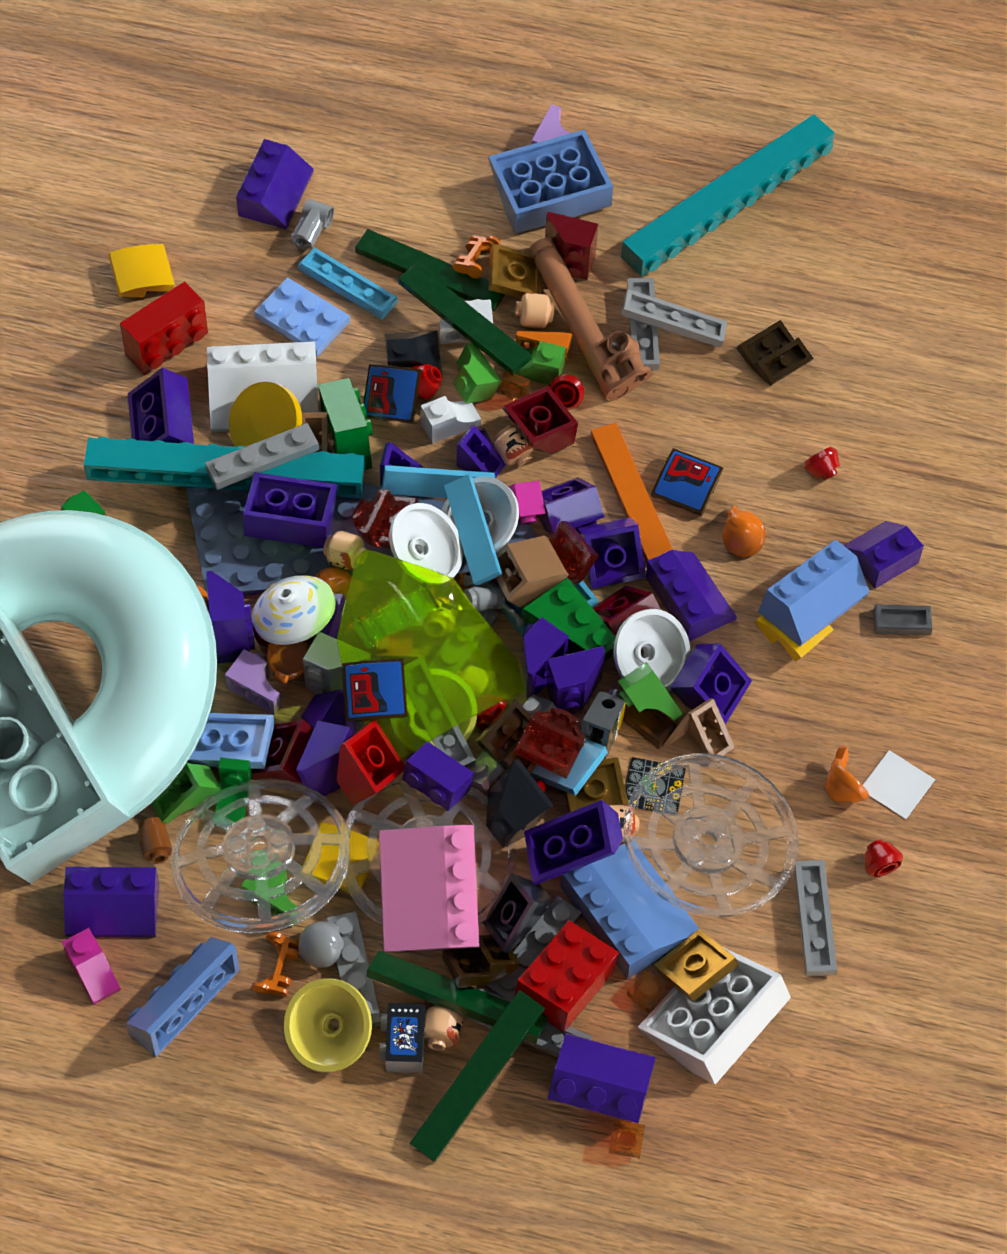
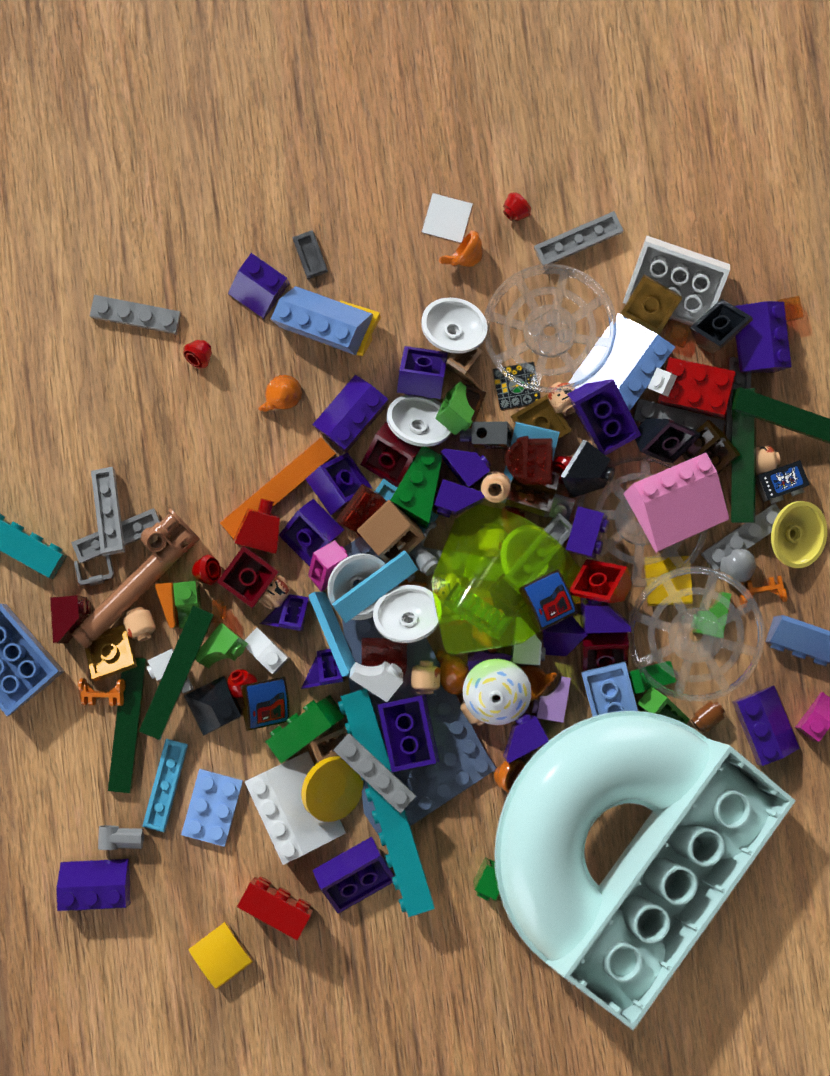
camera: 105 degrees left, 25 degrees up
(365, 494) = (380, 679): none -> white arch
(535, 691) = (496, 494): none -> light nougat head
(590, 926) = (662, 382): none -> white plate
(591, 452) = (259, 528): none -> red torso
(603, 290) = (95, 580): none -> light grey piece
(636, 1026) = (719, 326): none -> black slope
(687, 481) = (252, 450): slope -> none
(768, 725) = (453, 317): none -> white dish
(774, 353) = (105, 425): dark brown slope -> none
(893, 423) = (135, 314): none -> light grey plate

